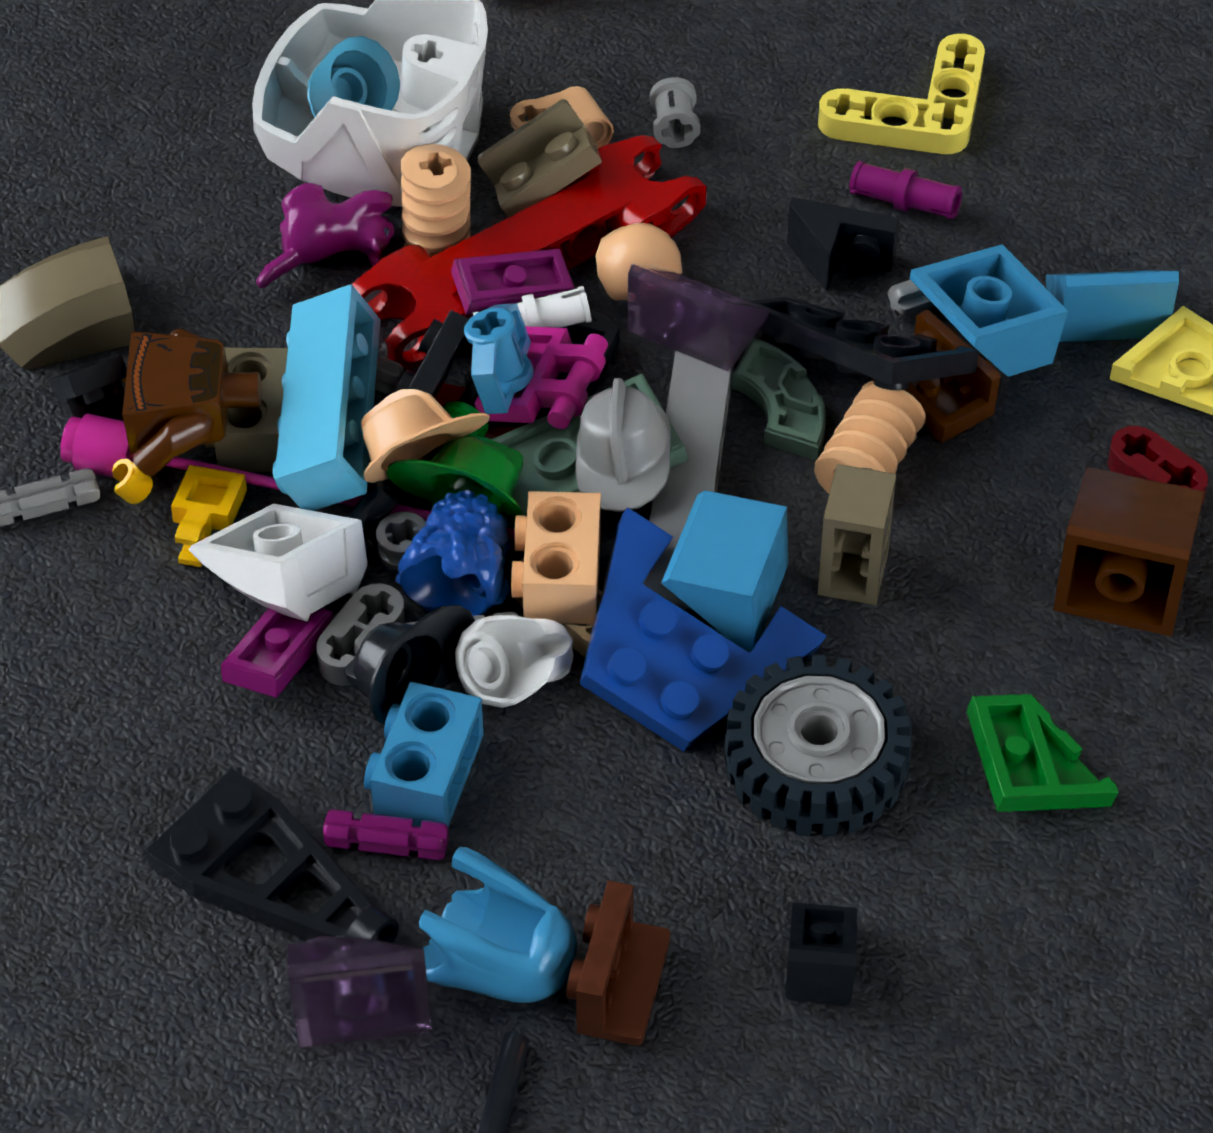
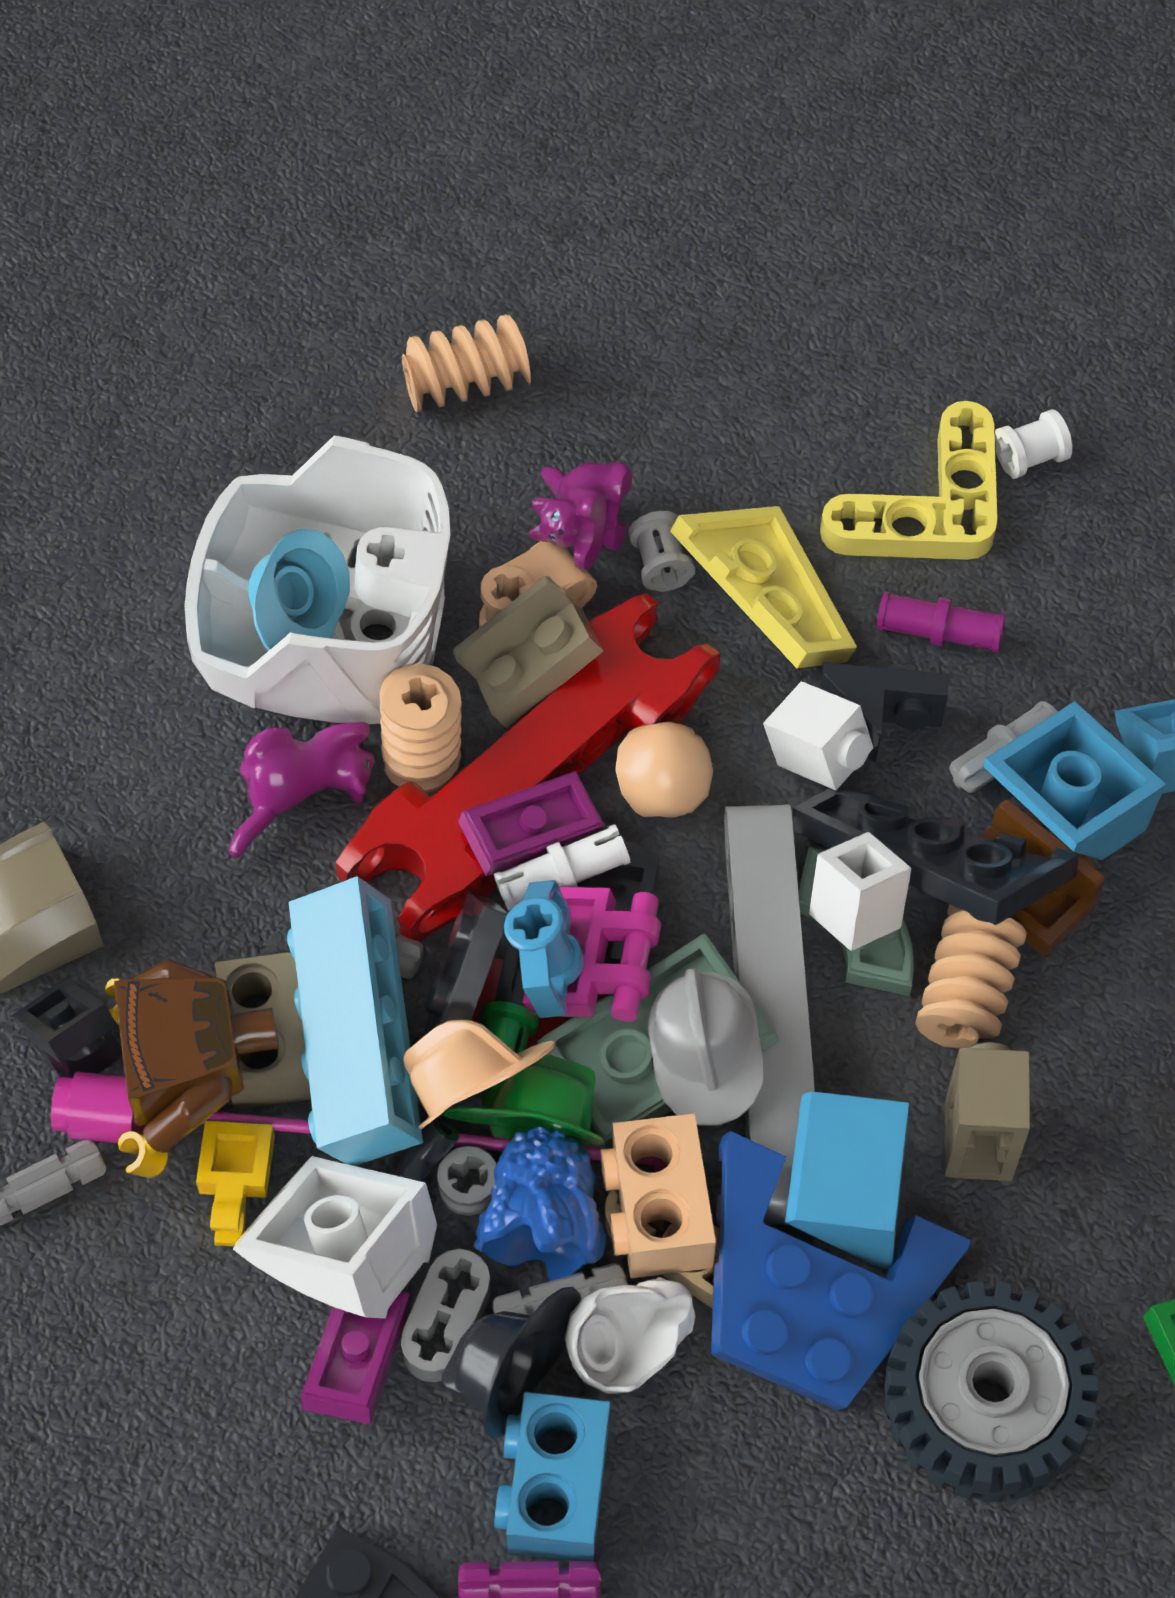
camera: 10 degrees left, 10 degrees up
(612, 69) = (584, 509): none -> magenta animal
(691, 316) = (748, 845): clear purple slope -> none
(760, 137) = (770, 579): none -> light yellow wing
(777, 253) = (818, 735): none -> white brick
(782, 358) = (859, 891): none -> white brick
(1016, 71) = (1033, 443): none -> white bush

